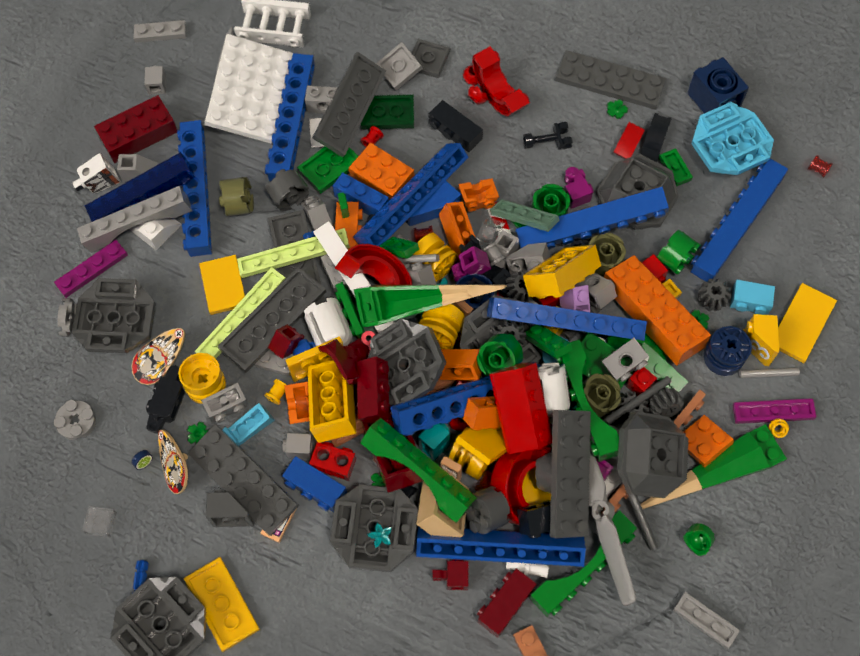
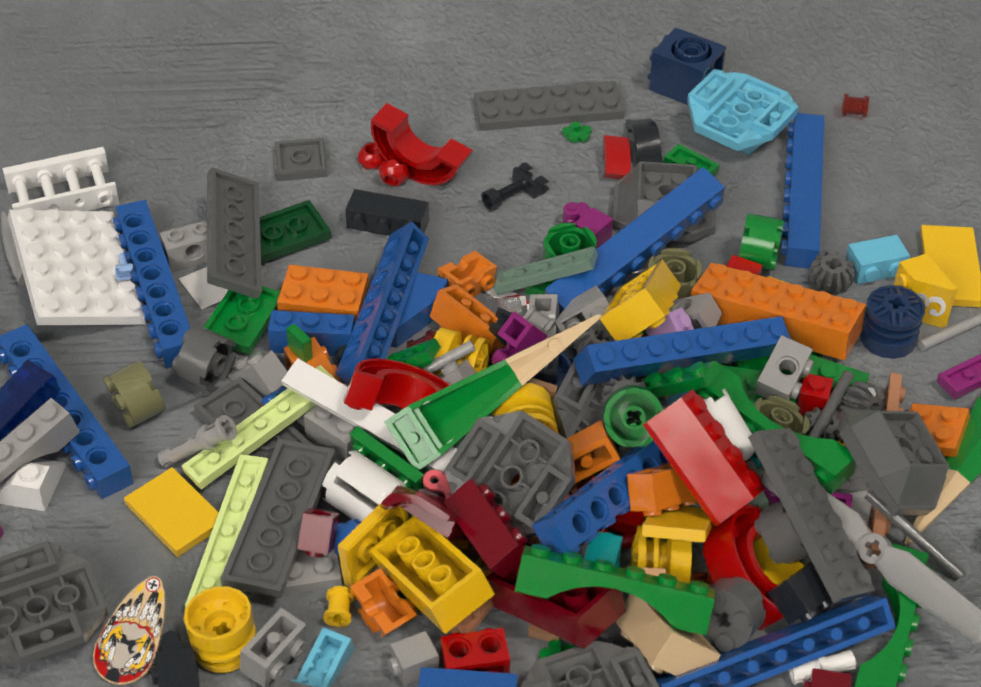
camera: 30 degrees left, 20 degrees down
(255, 248) = (205, 438): none -> light grey pin
(273, 104) = (122, 271): none -> light blue hand
(372, 137) = (281, 264): red bush -> none
(399, 66) = (274, 173): light grey plate -> none

